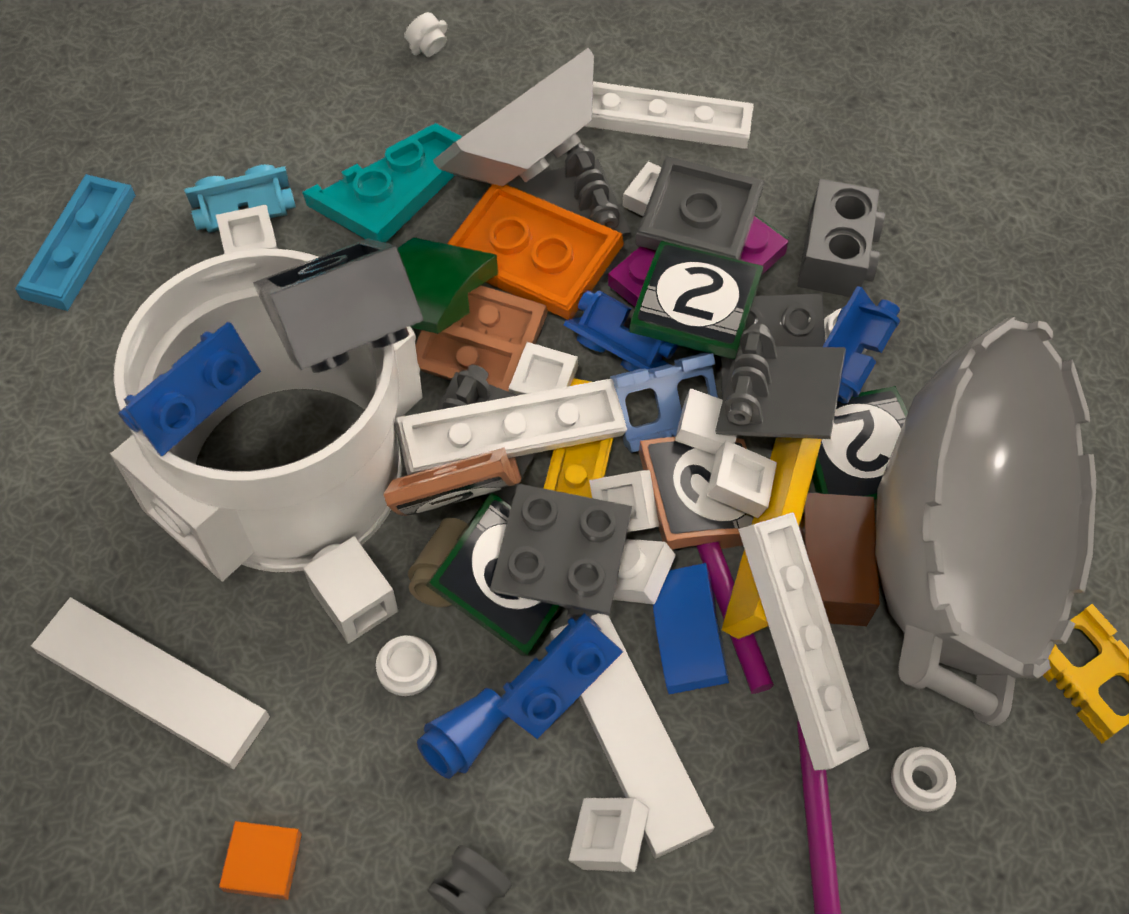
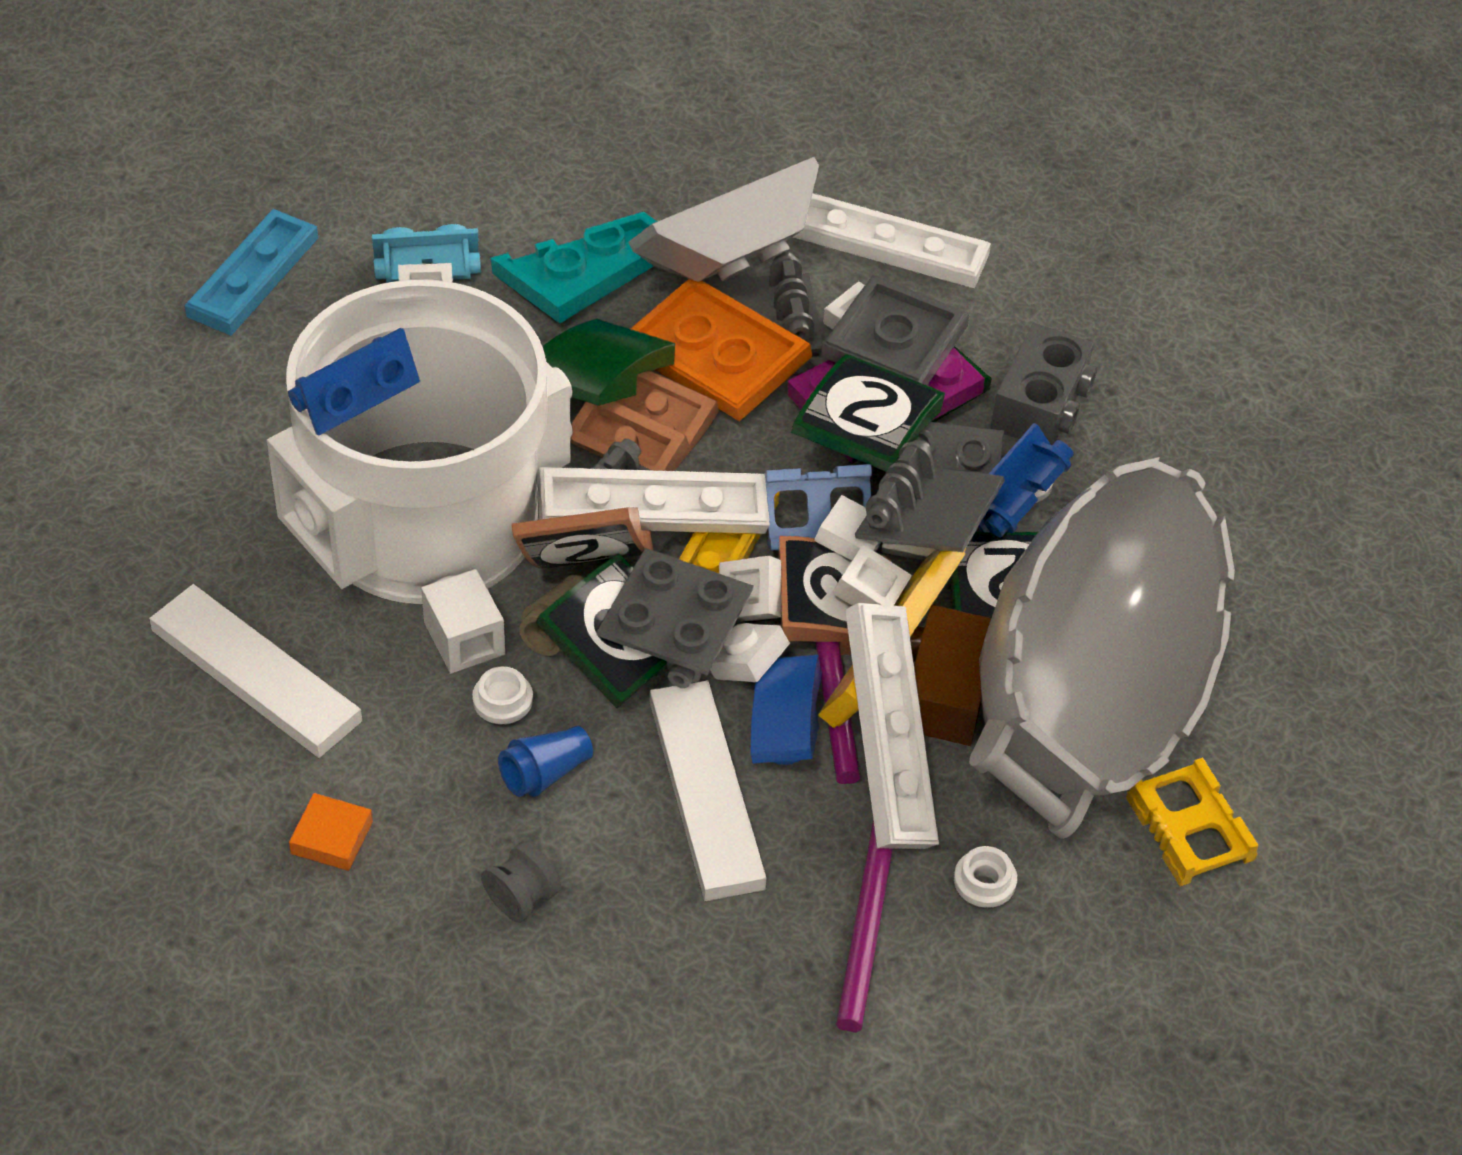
camera: 10 degrees right, 10 degrees down
(340, 304) = (504, 333): slope -> none
(426, 35) = (654, 124): white plate -> none
(542, 370) = (700, 454): white plate -> none
(555, 682) = (647, 723): blue hinge -> none
(604, 329) = (770, 433): blue hinge -> none
(609, 834) = (663, 863): white plate -> none

